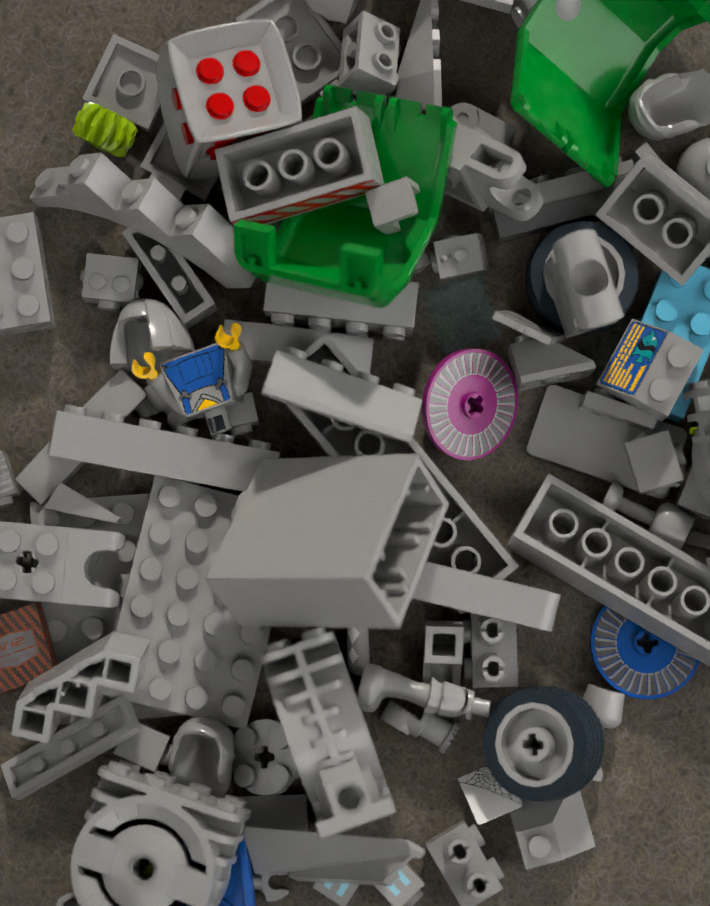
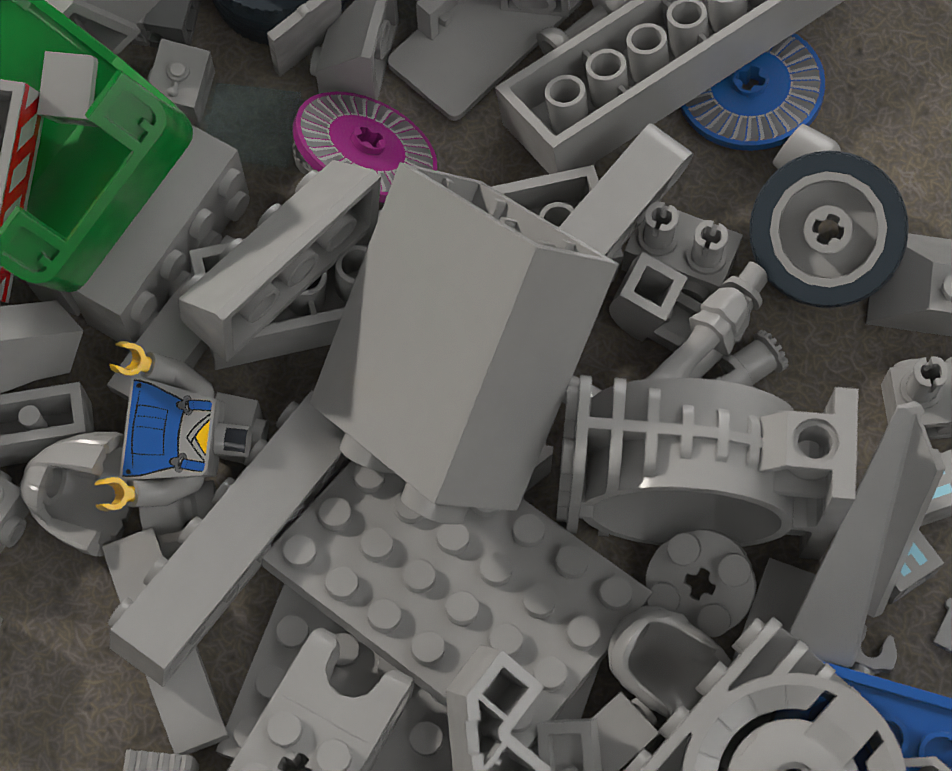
camera: 65 degrees left, 15 degrees down
(71, 502) = (246, 683): light grey piece -> none
(486, 796) = (861, 333): white sticker -> none

